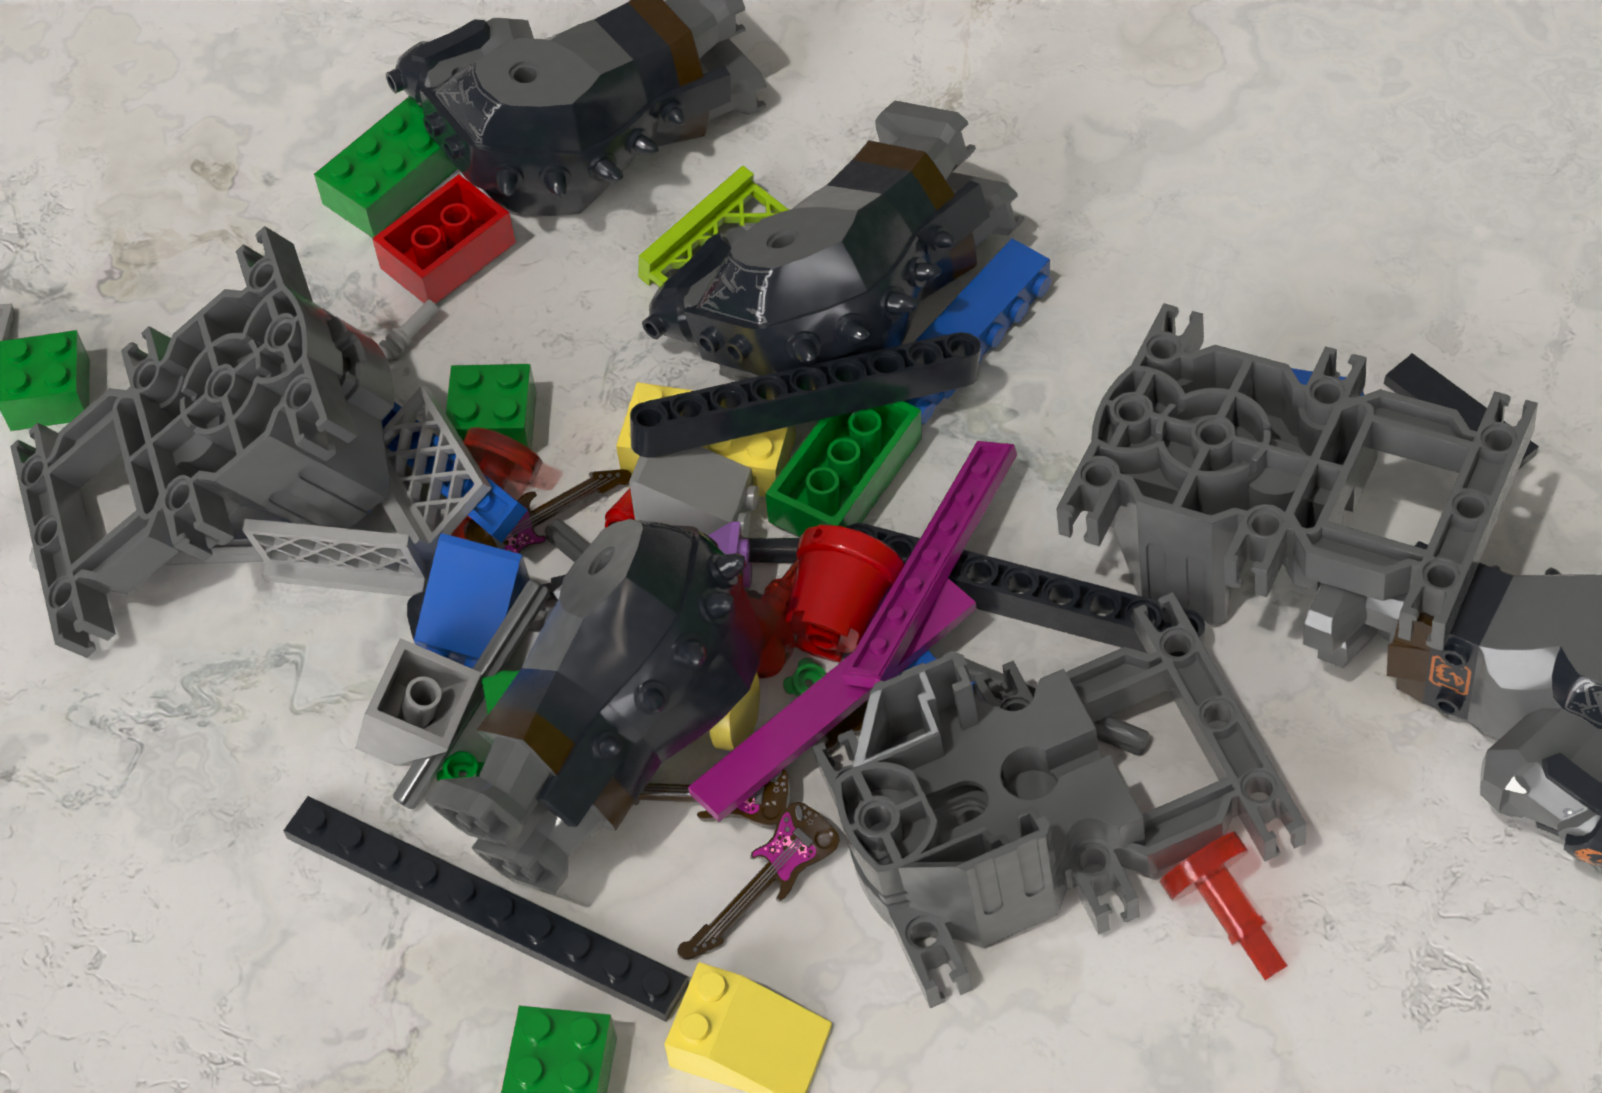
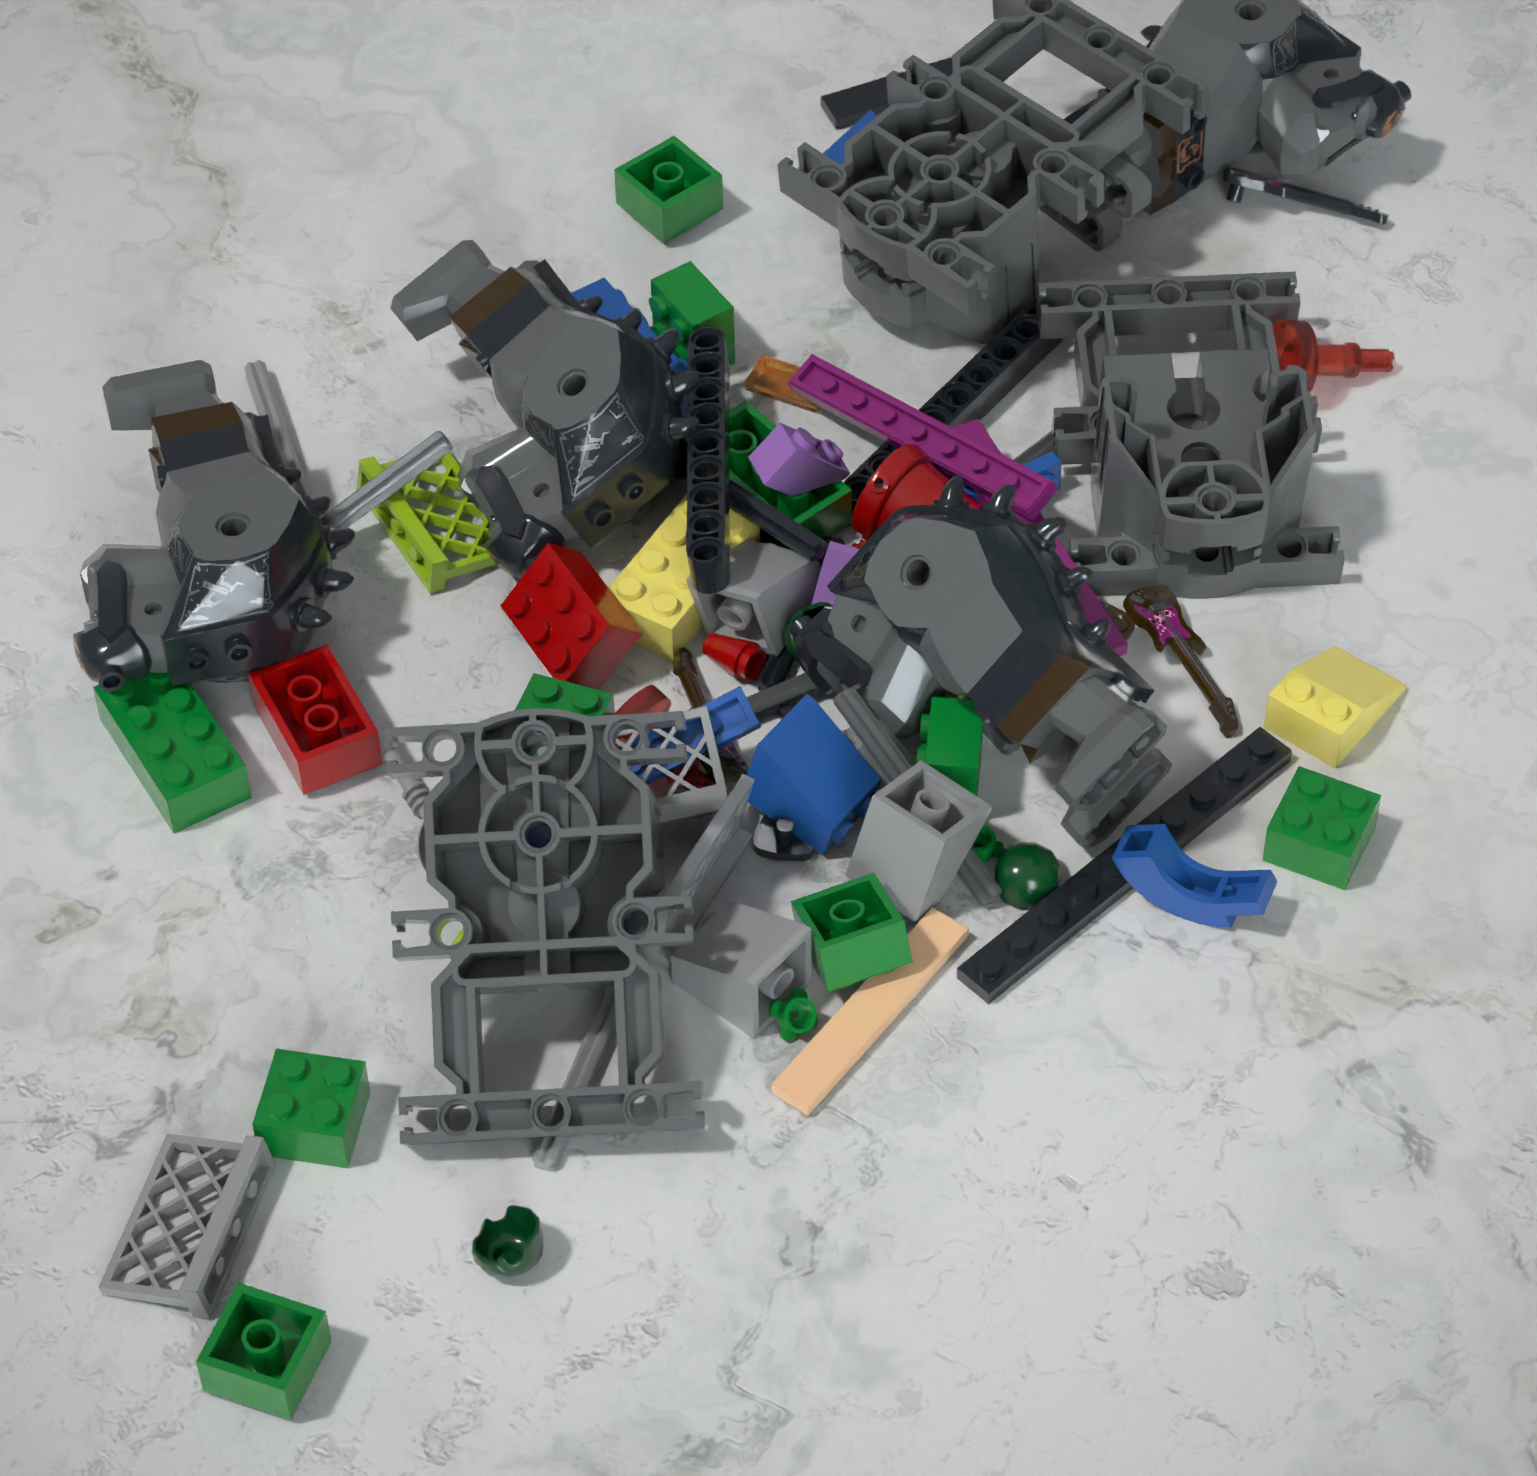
camera: 75 degrees left, 5 degrees down
(213, 684) = (805, 1018): none -> green plate
(251, 744) = (867, 1014): none -> light nougat tile
(256, 626) = (744, 964): none -> light grey slope
(303, 692) = (853, 931): none -> green brick
(430, 830) = (1026, 874): none -> dark green hair
(451, 956) = (1183, 886): none -> blue arch
(603, 369) = (571, 618): none -> red brick
(696, 184) = (388, 482): none -> axle
(761, 120) = (267, 404): none -> light grey axle
(762, 472) = (774, 522): none -> black axle
(836, 468) = (797, 461): none -> medium lavender slope
(1011, 431) = (771, 379): none -> clear orange tile
(1021, 341) = (689, 301): none -> green brick
(1200, 270) = (668, 189): none -> green brick
(1471, 750) = (1243, 179): none -> black piece

